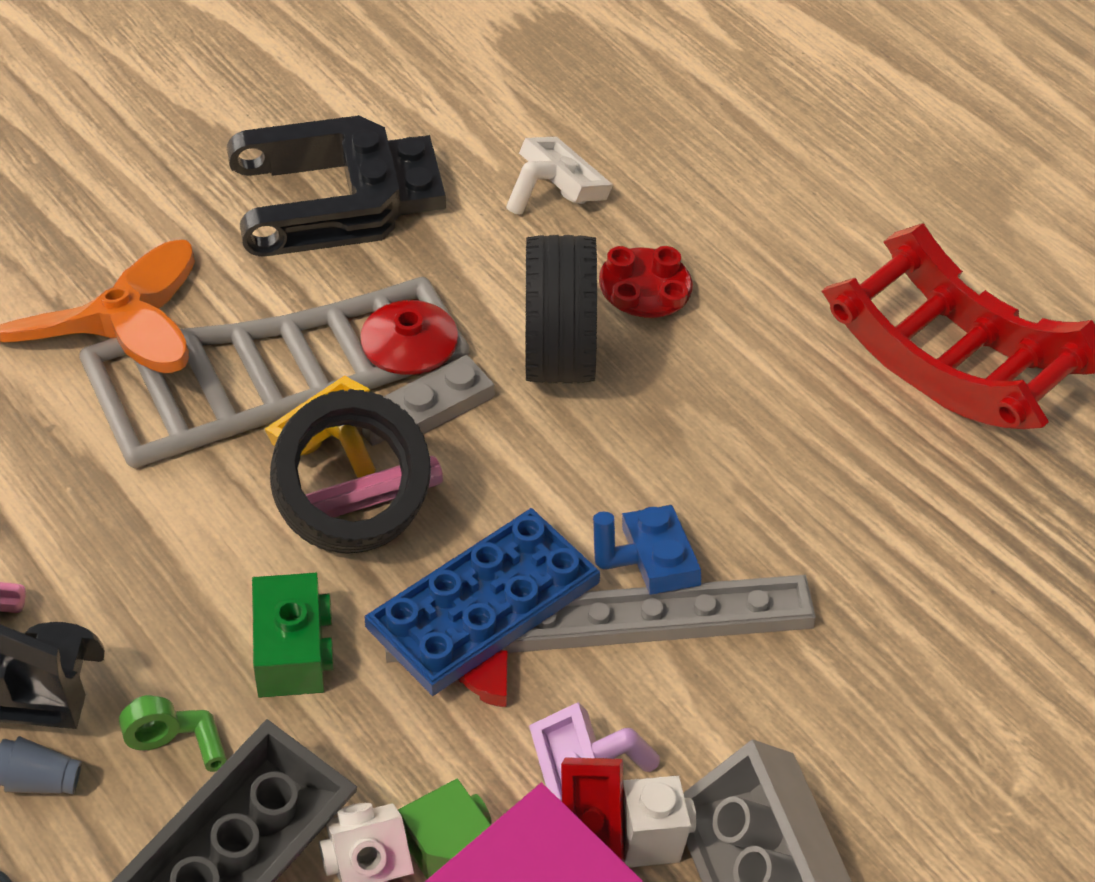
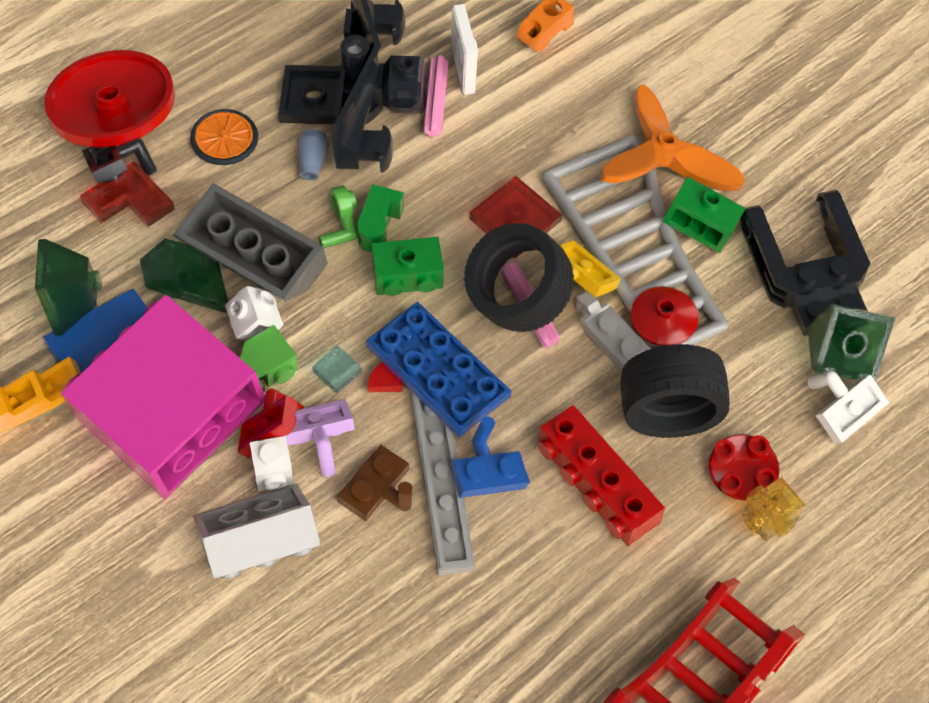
camera: 85 degrees right, 10 degrees up
(185, 675) = (376, 214): none -> green leg
(205, 501) = (515, 204): none -> clear red plate
(249, 274) = (703, 214): none -> green brick
(465, 744) = (337, 369): none -> clear light blue tile
(475, 154) = (849, 341): none -> clear green slope
(662, 424) = (600, 475): none -> red brick
(675, 697) = (377, 482): none -> reddish brown plate
(717, 251) = (772, 509): none -> clear yellow brick

